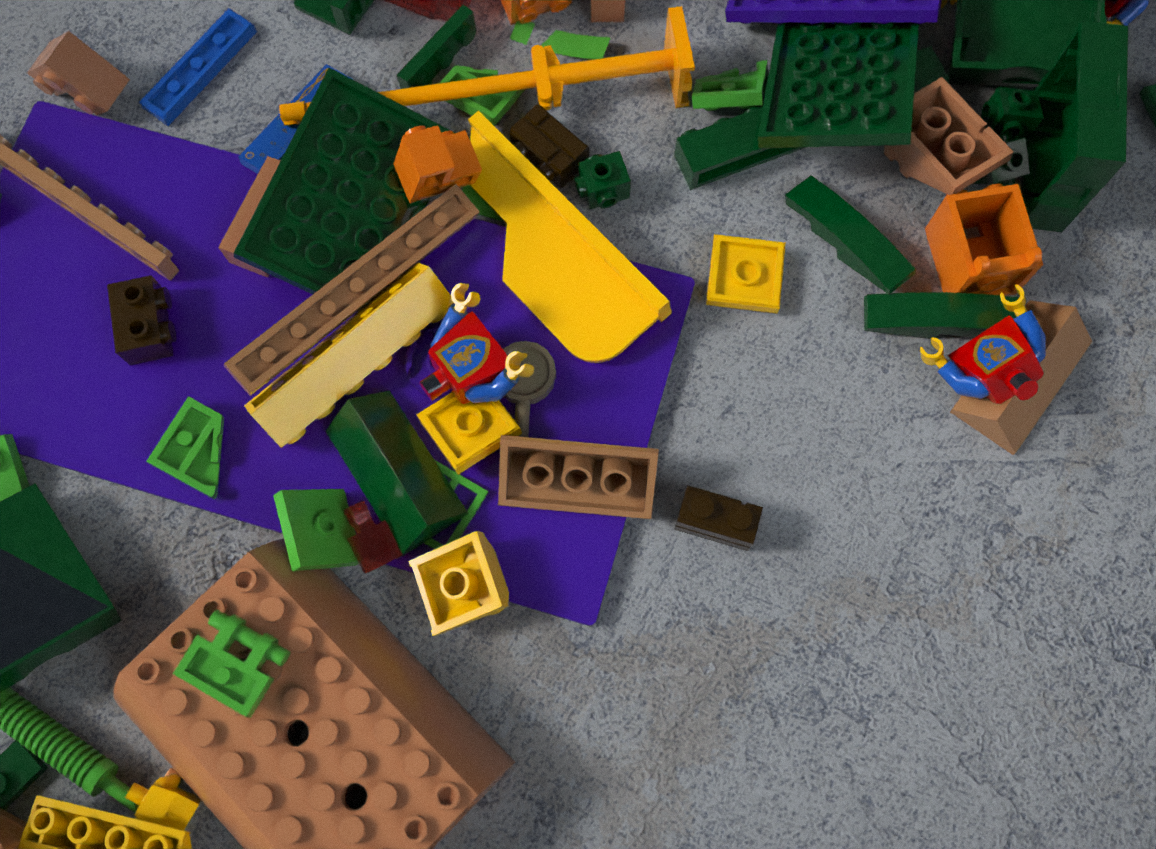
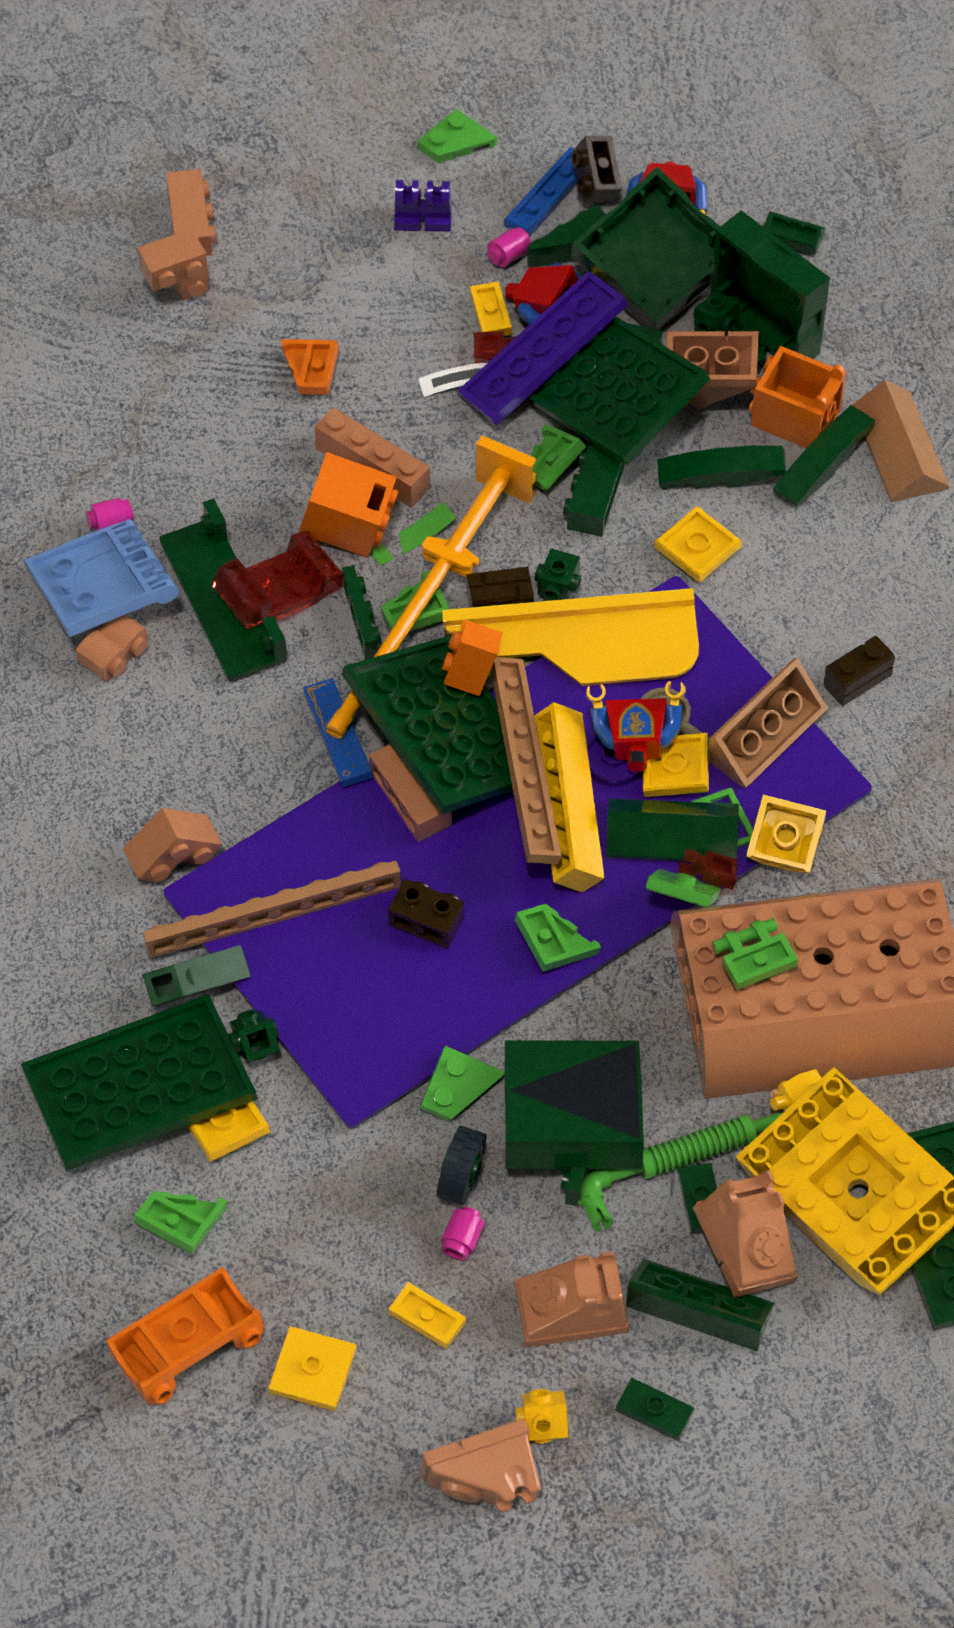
camera: 55 degrees left, 15 degrees down
(198, 67) = (224, 772): blue tile -> none
(998, 360) = (884, 445): torso -> none

